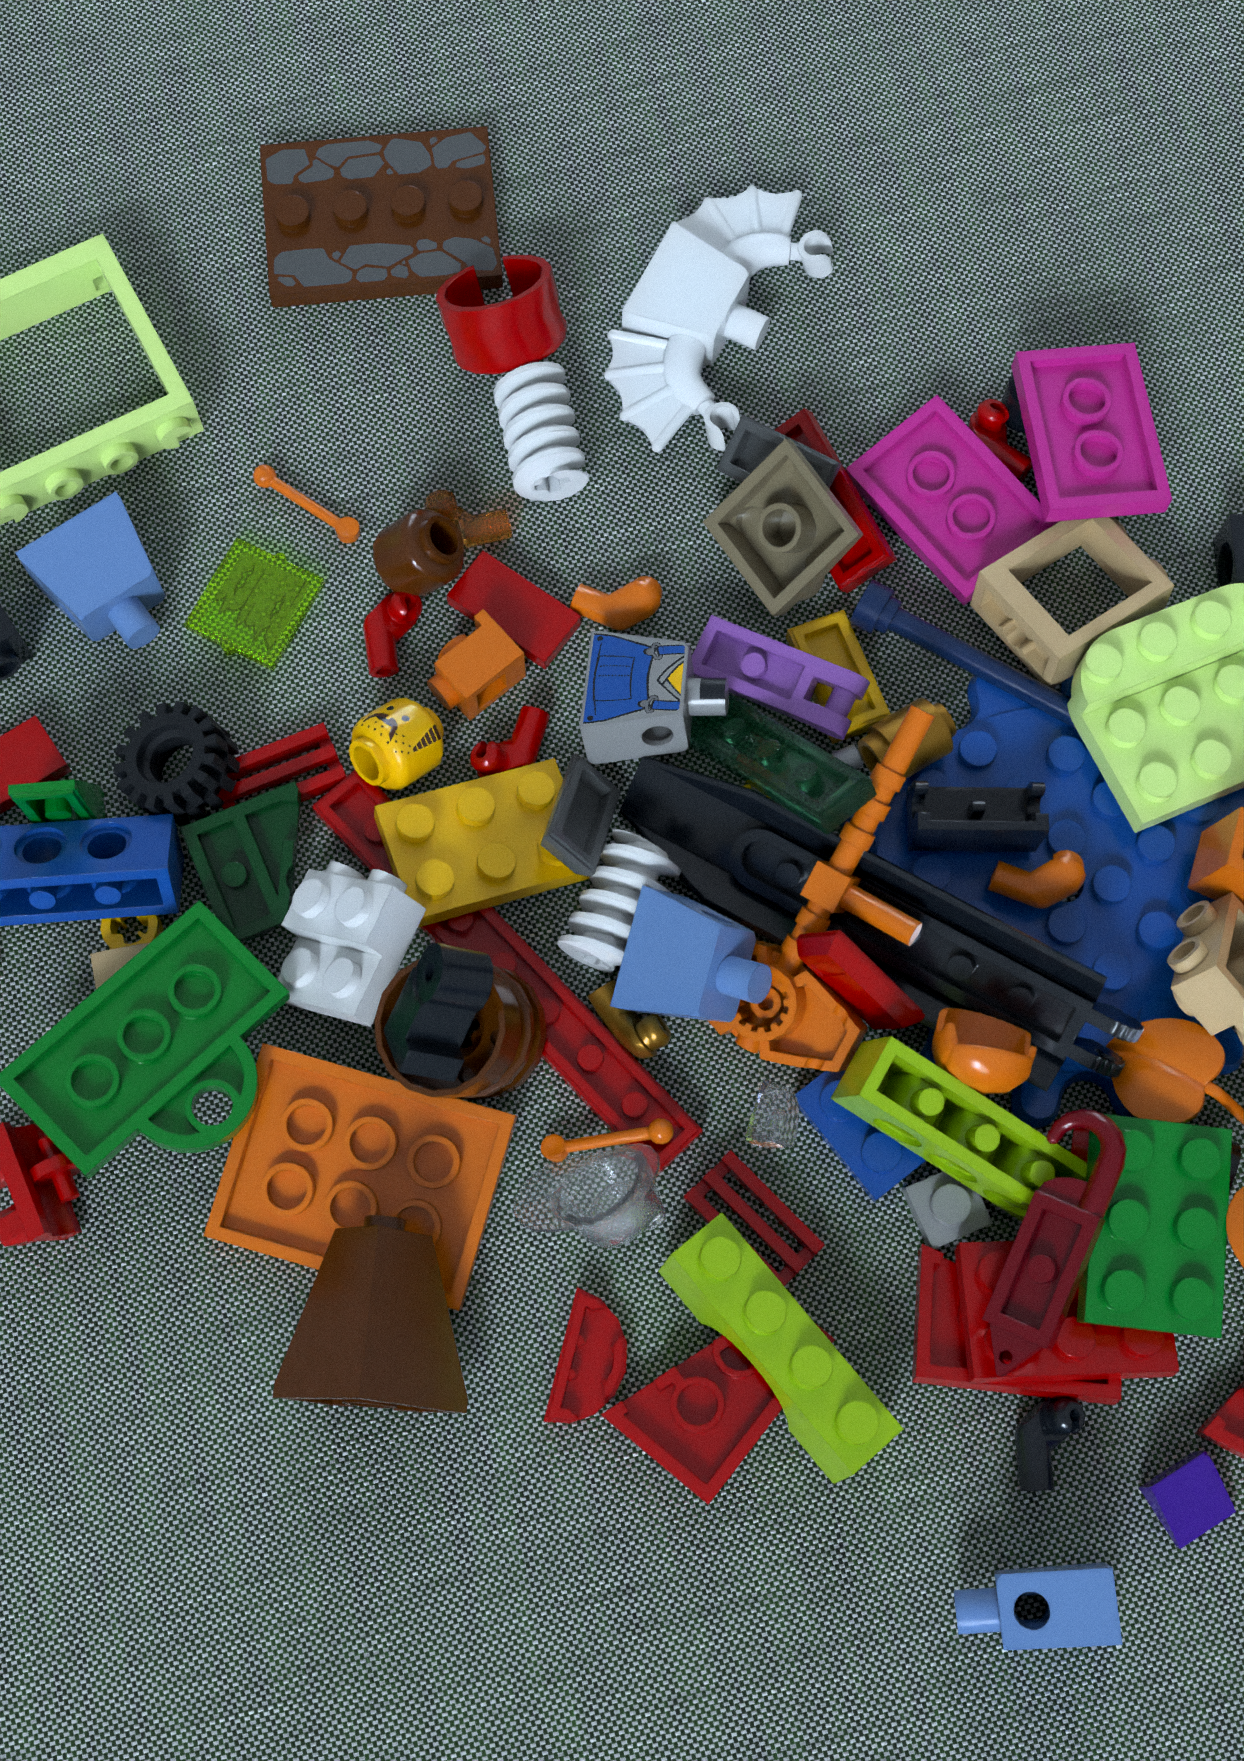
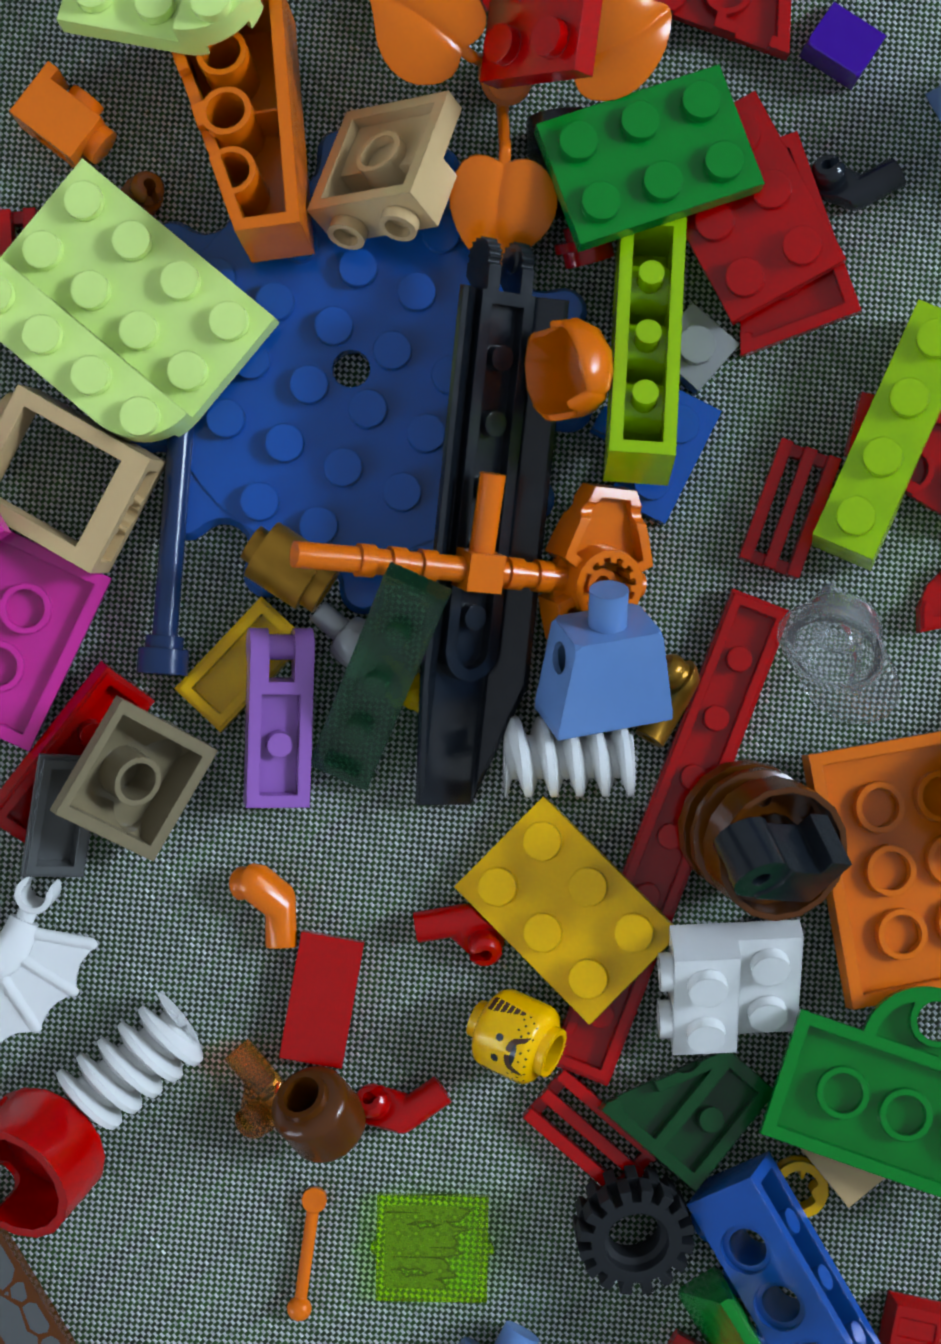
camera: 115 degrees left, 15 degrees up
(477, 668) = (404, 1003): orange brick -> none
(557, 1148) = (806, 708): orange hinge -> none
(581, 817) = (506, 831): dark grey tile -> none
(643, 697) = (364, 831): torso -> none
(773, 1117) = (691, 531): clear tile -> none
(857, 980) = (554, 508): red tile -> none
(975, 818) = (334, 473): black hinge -> none
(1043, 885) = (371, 382): orange arm -> none
(1053, 1247) = (714, 234): dark red plate -> none

